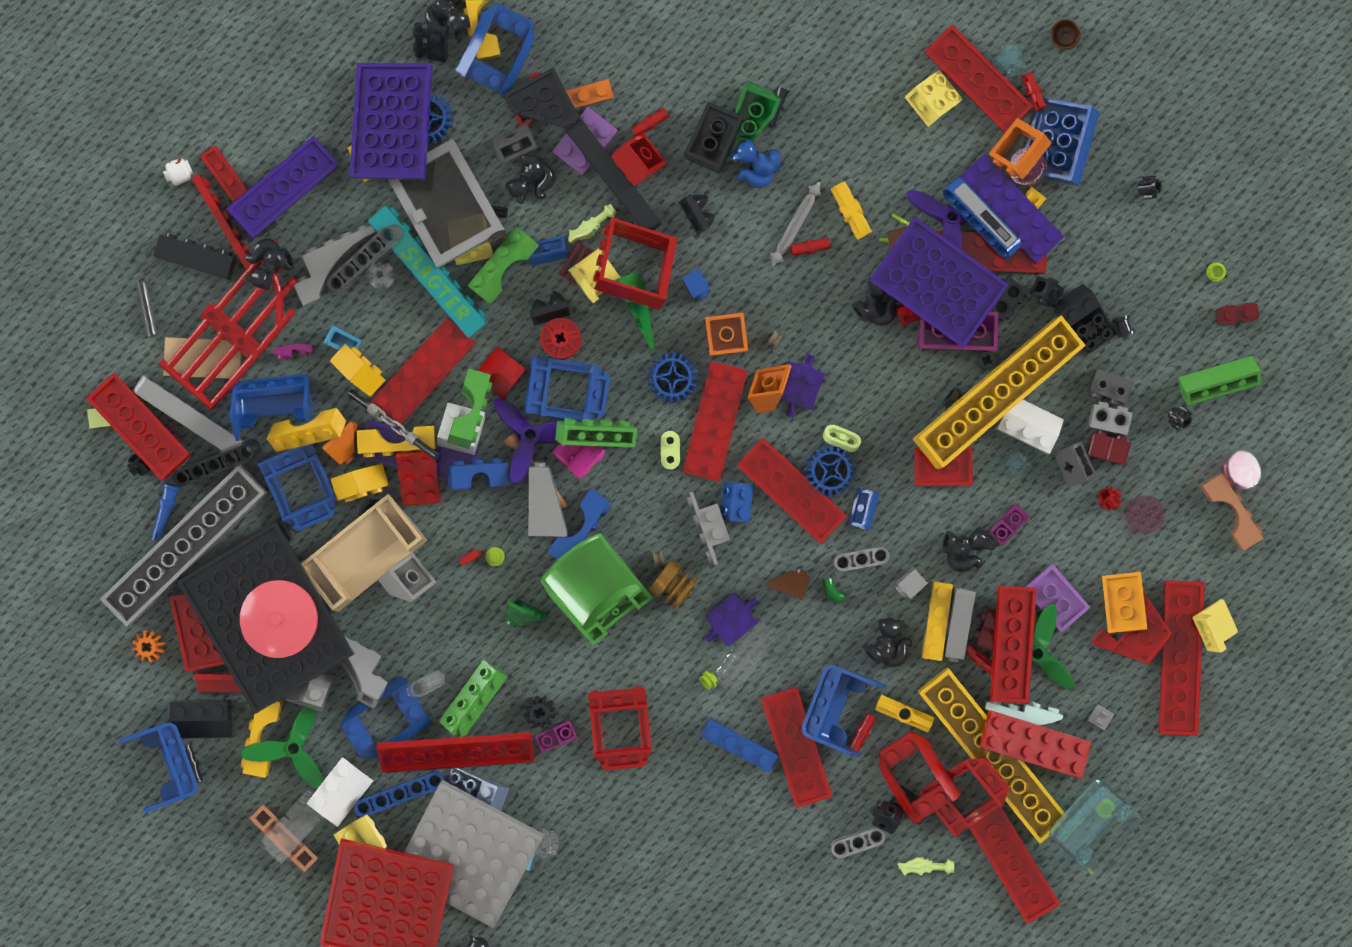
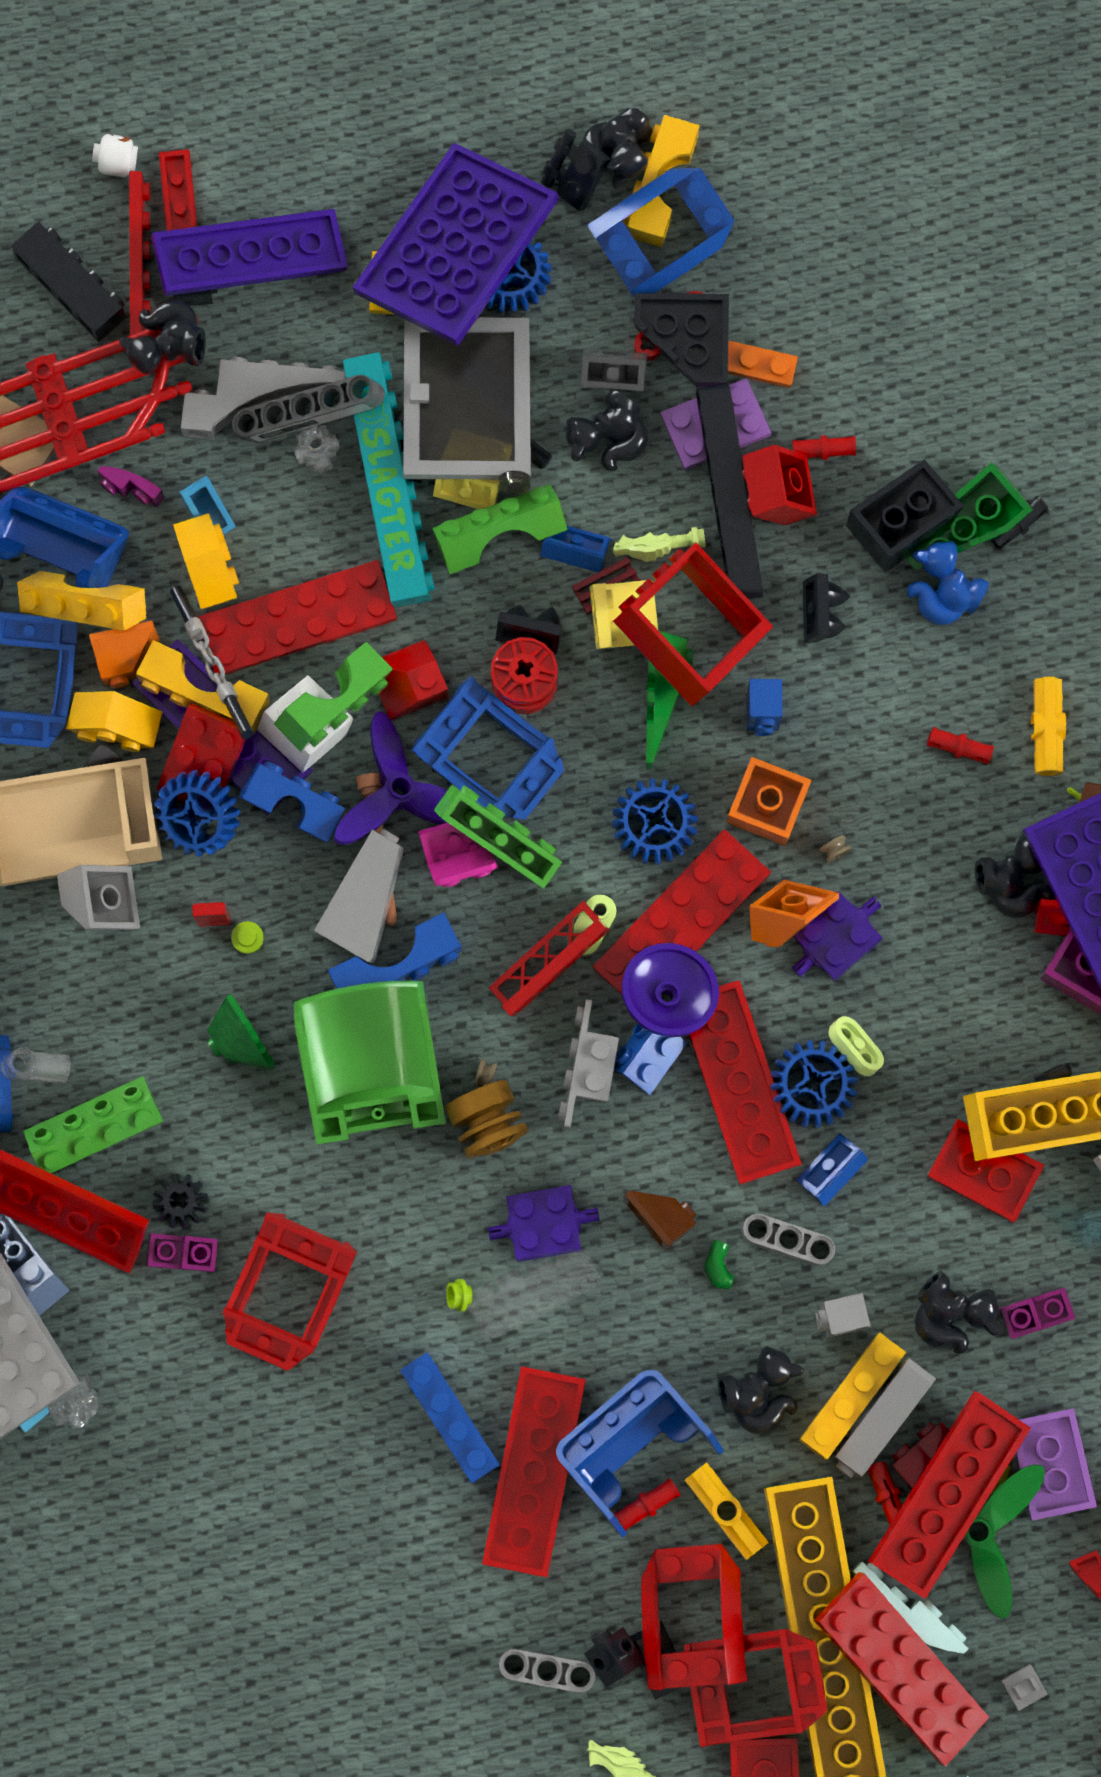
camera: 30 degrees right, 10 degrees down
(434, 502) = (189, 822): none -> blue gear
(664, 484) = (556, 967): none -> red fence
(734, 453) = (674, 972): none -> dark purple dish
(795, 224) = (956, 702): light grey wheel -> none

